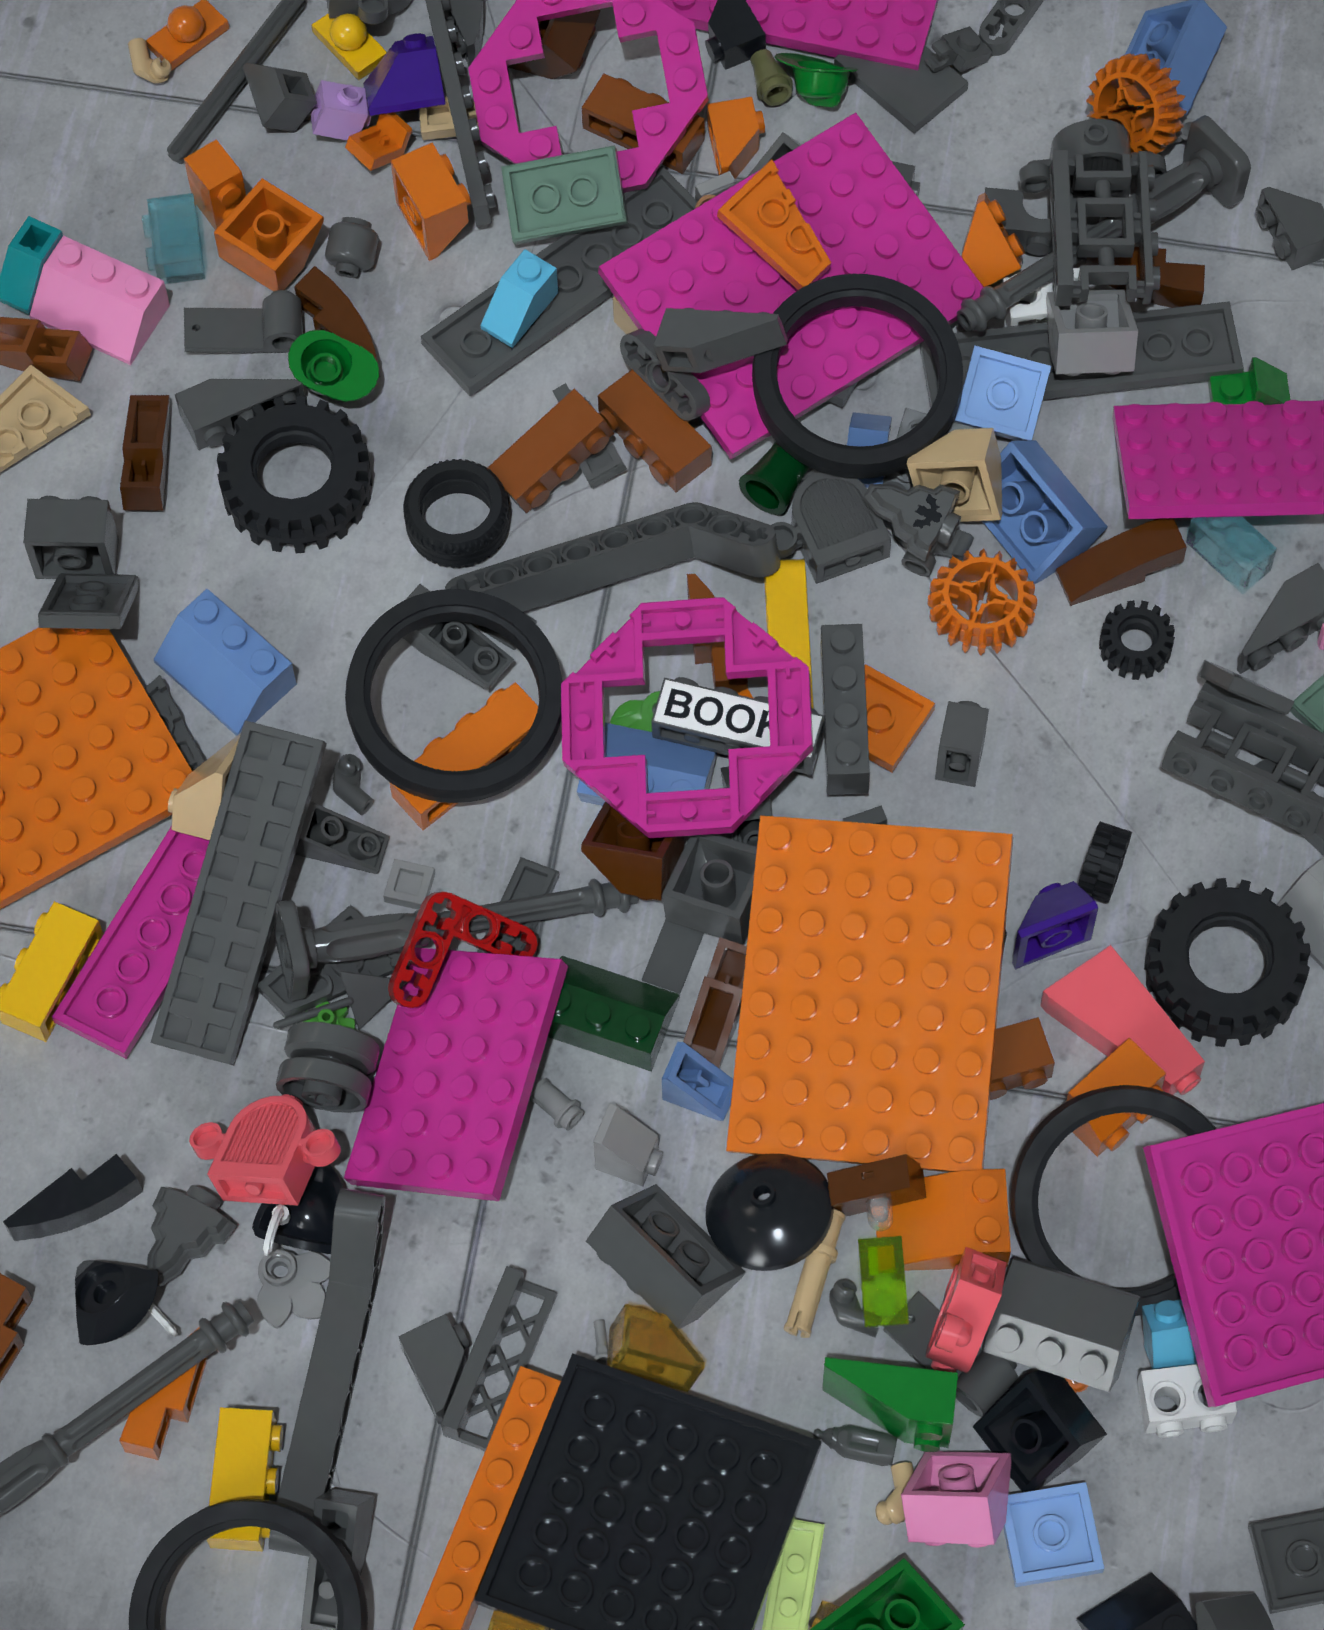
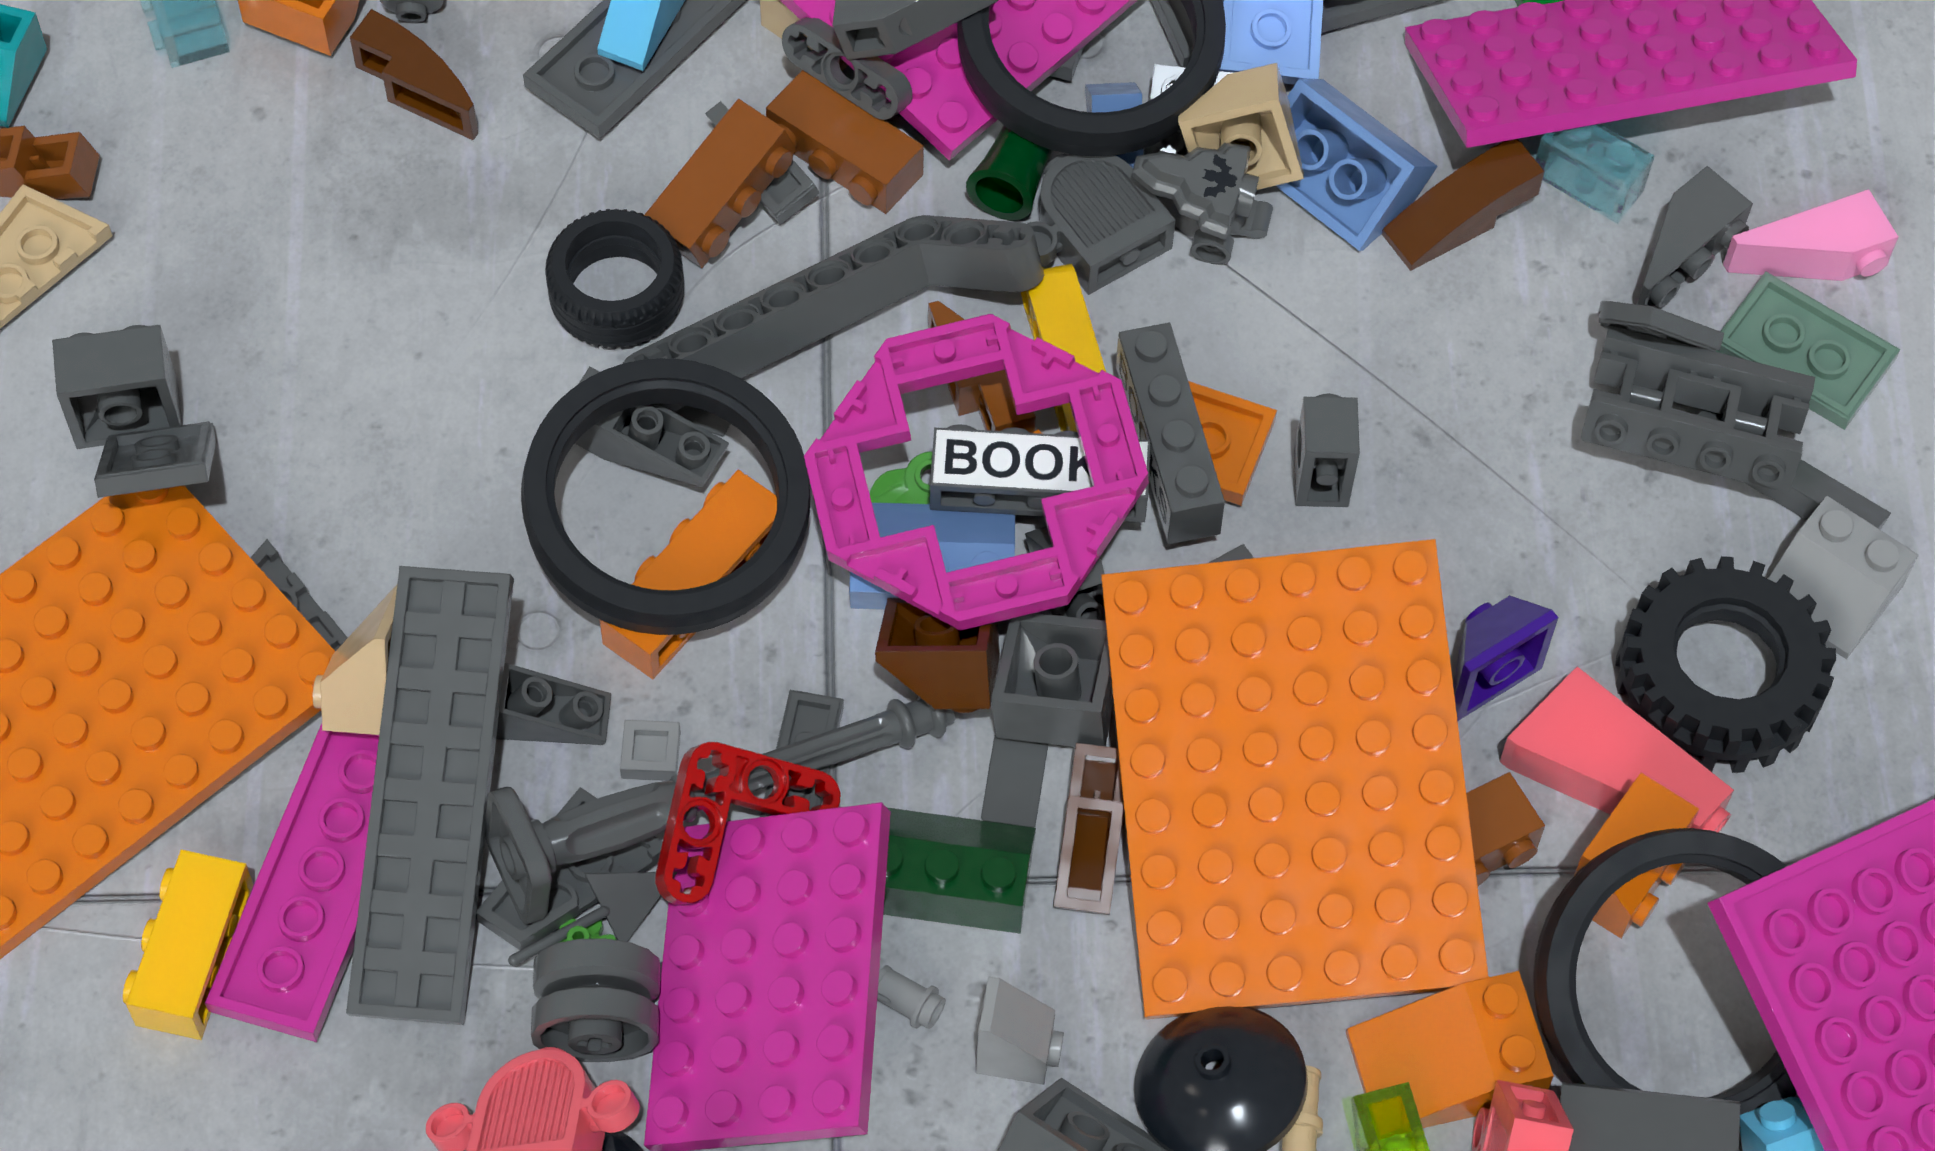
camera: 15 degrees left, 5 degrees down
(101, 298) = (102, 86): bright pink slope -> none
(145, 452) = (194, 270): reddish brown slope -> none
(217, 403) = (296, 194): dark grey slope -> none
(224, 663) = (349, 510): medium blue slope -> none
(245, 329) = (326, 98): dark grey door -> none
(301, 518) = (405, 318): black tyre -> none
(333, 366) = (419, 124): green piece -> none
(346, 784) = (541, 637): dark grey arm -> none
(696, 1083) = (1088, 937): medium blue slope -> none
(877, 1188) = (1357, 1028): reddish brown piece -> none
(956, 587) = (1336, 280): orange gear -> none
(1104, 861) = (1542, 561): black tyre -> none
(1140, 619) = (1512, 272): black tyre -> none

